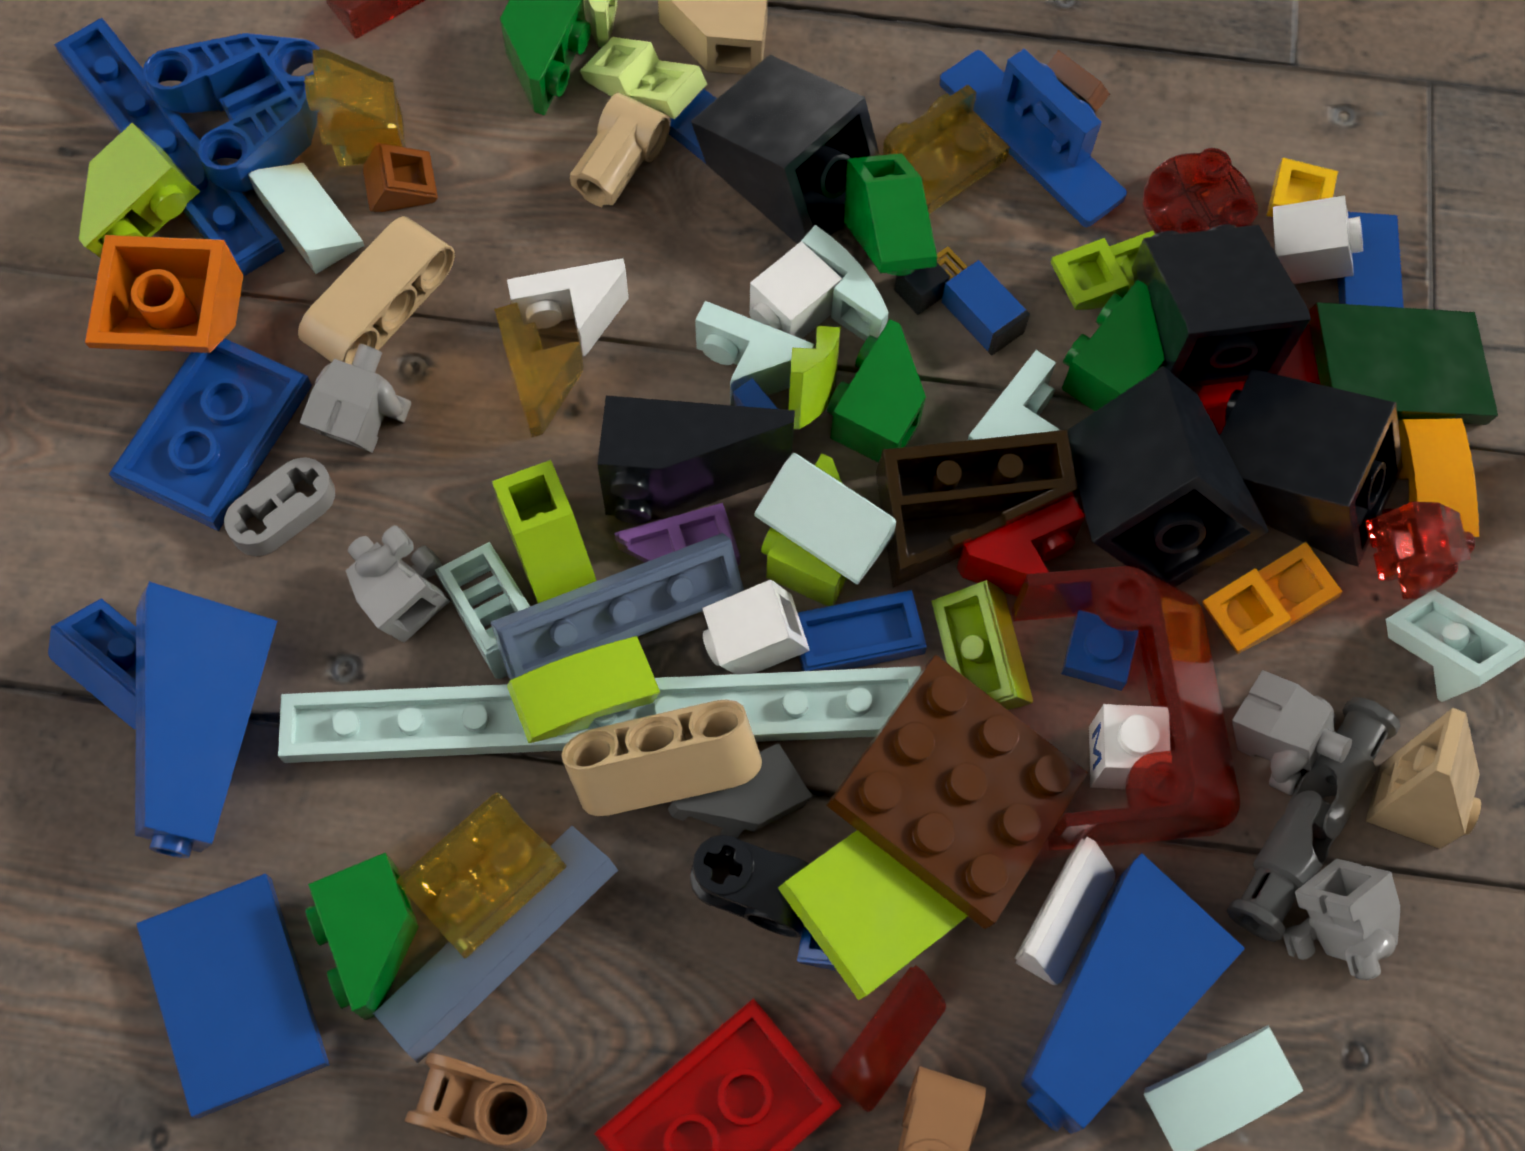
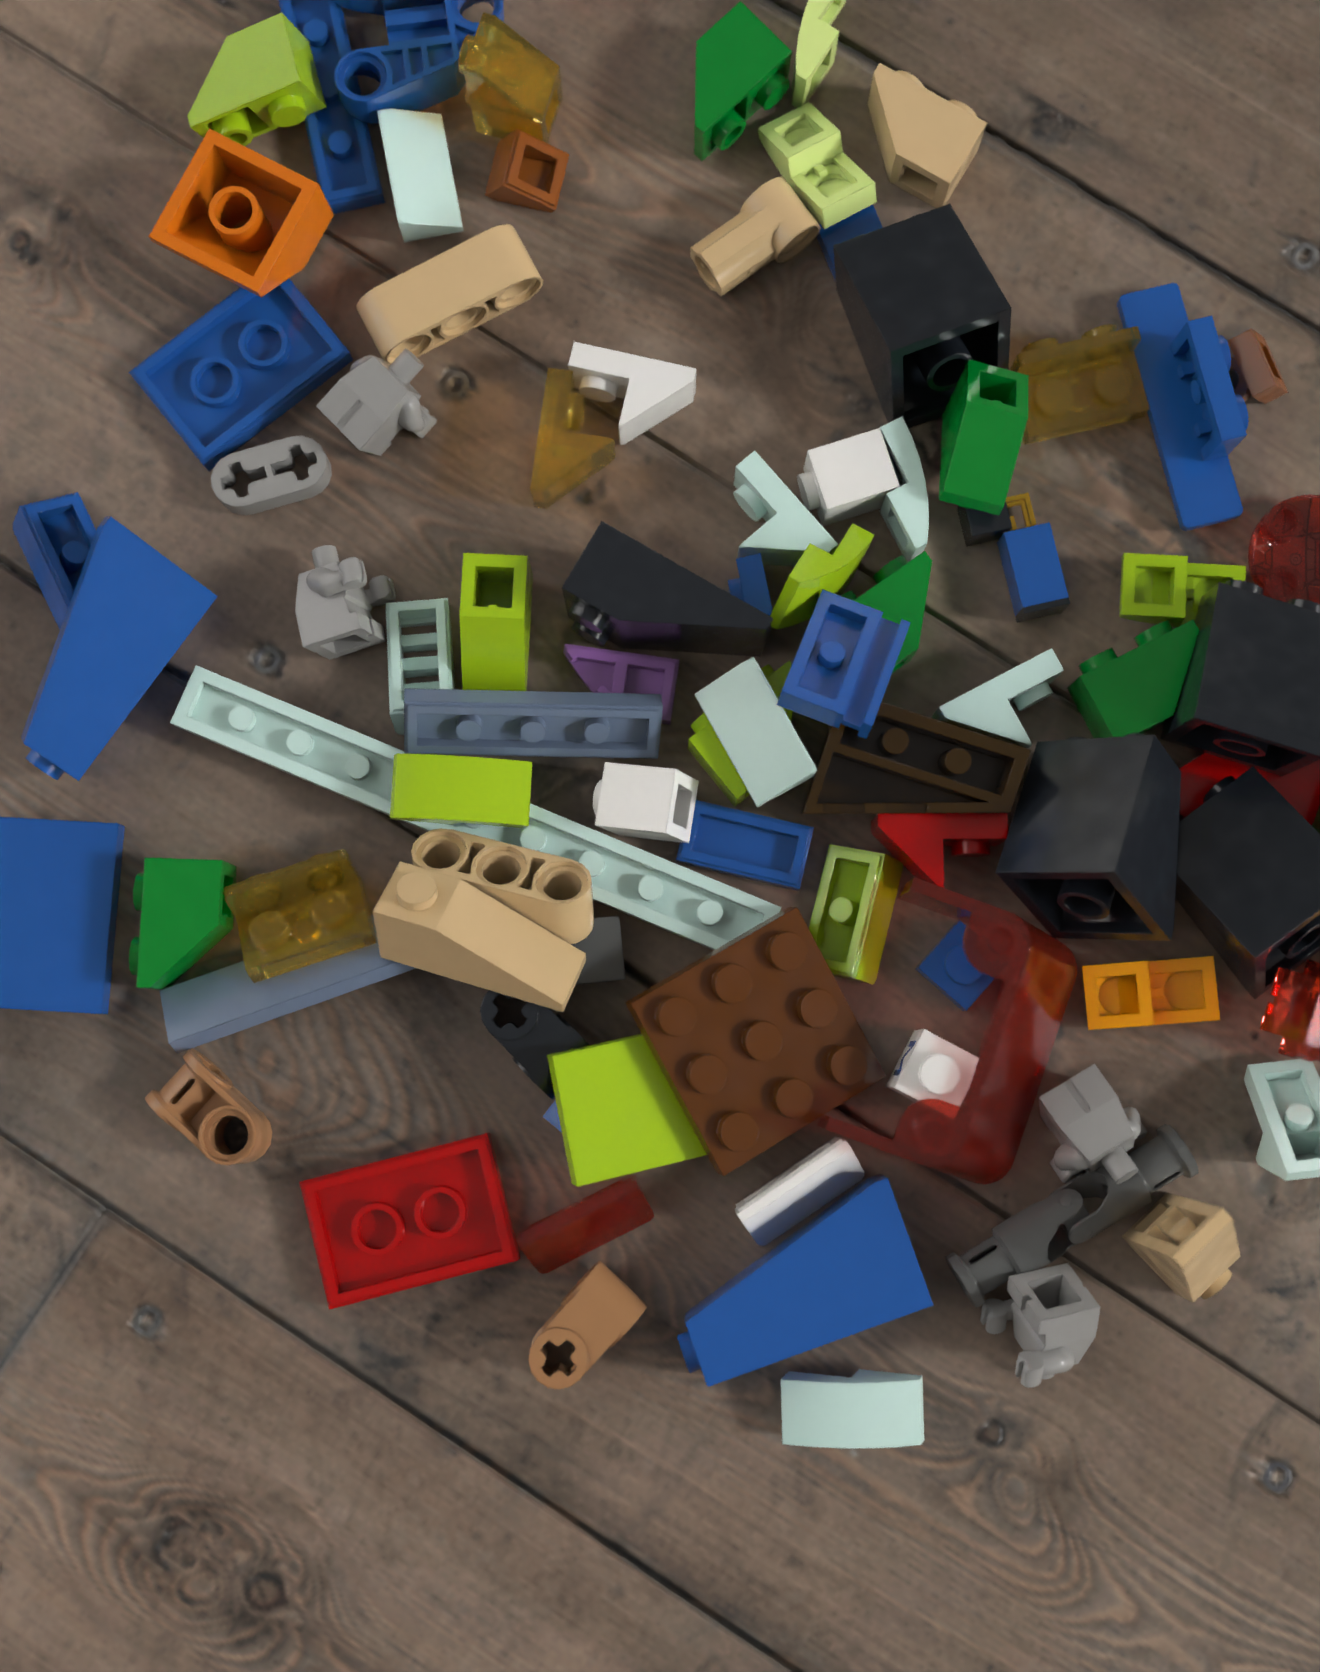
camera: 30 degrees right, 15 degrees up
(652, 811) = (472, 938): none -> tan slope
(873, 427) = (843, 664): none -> blue plate

